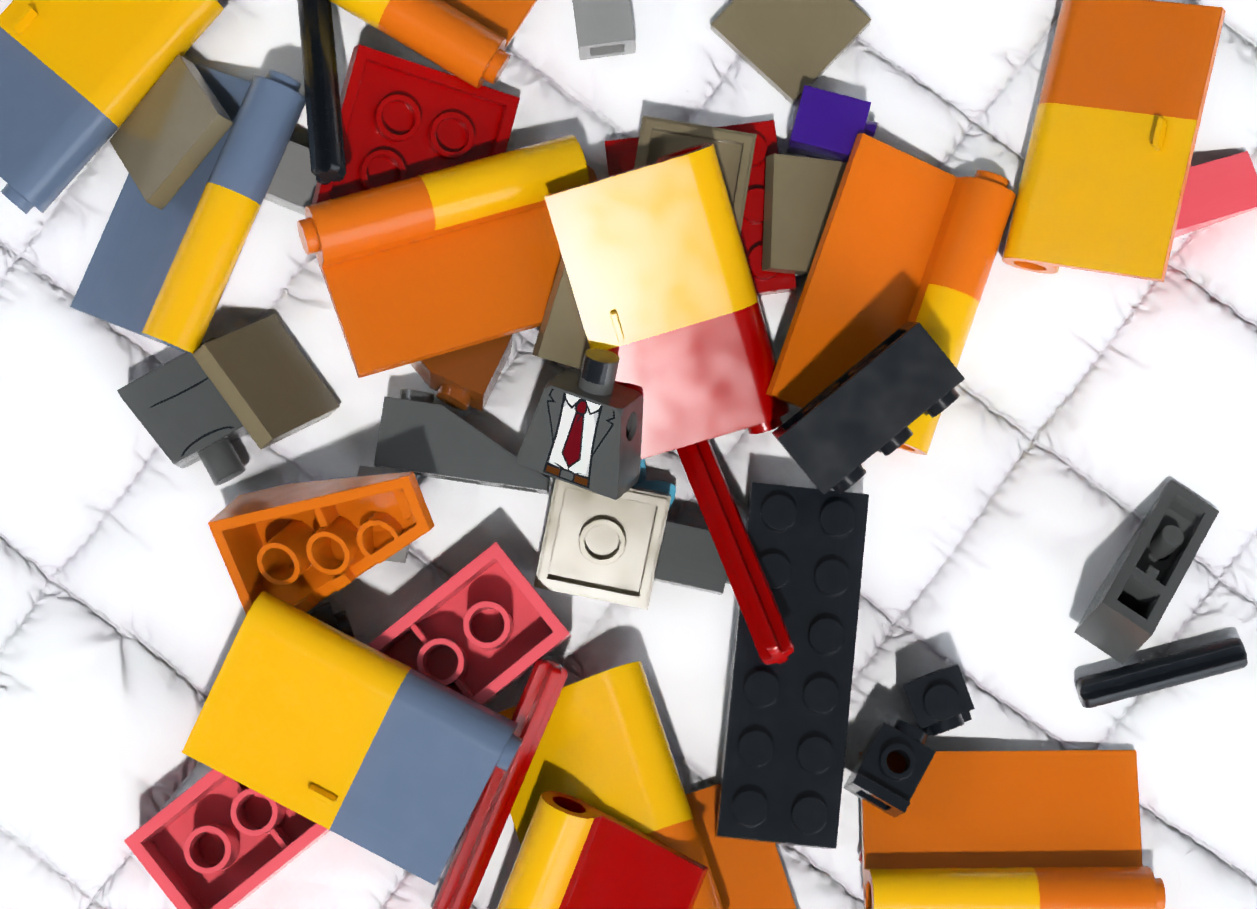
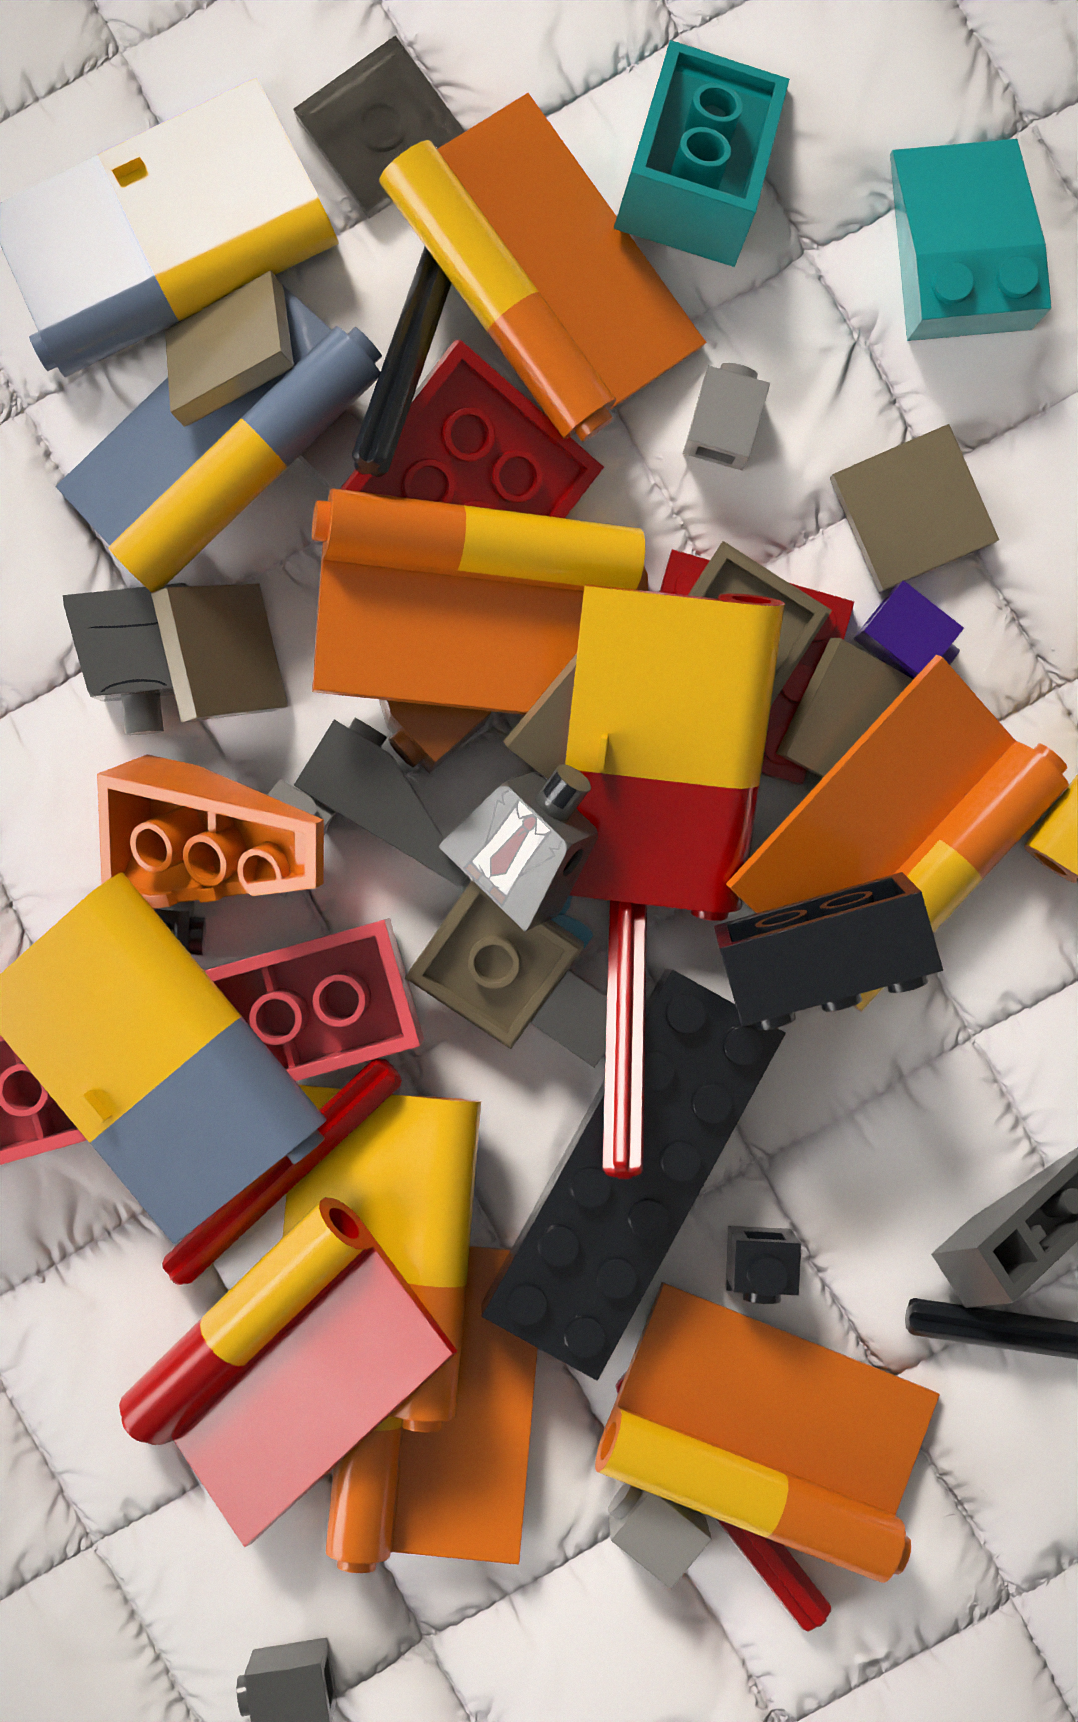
camera: 15 degrees right, 5 degrees up
(876, 782) = (666, 1312): black brick -> none

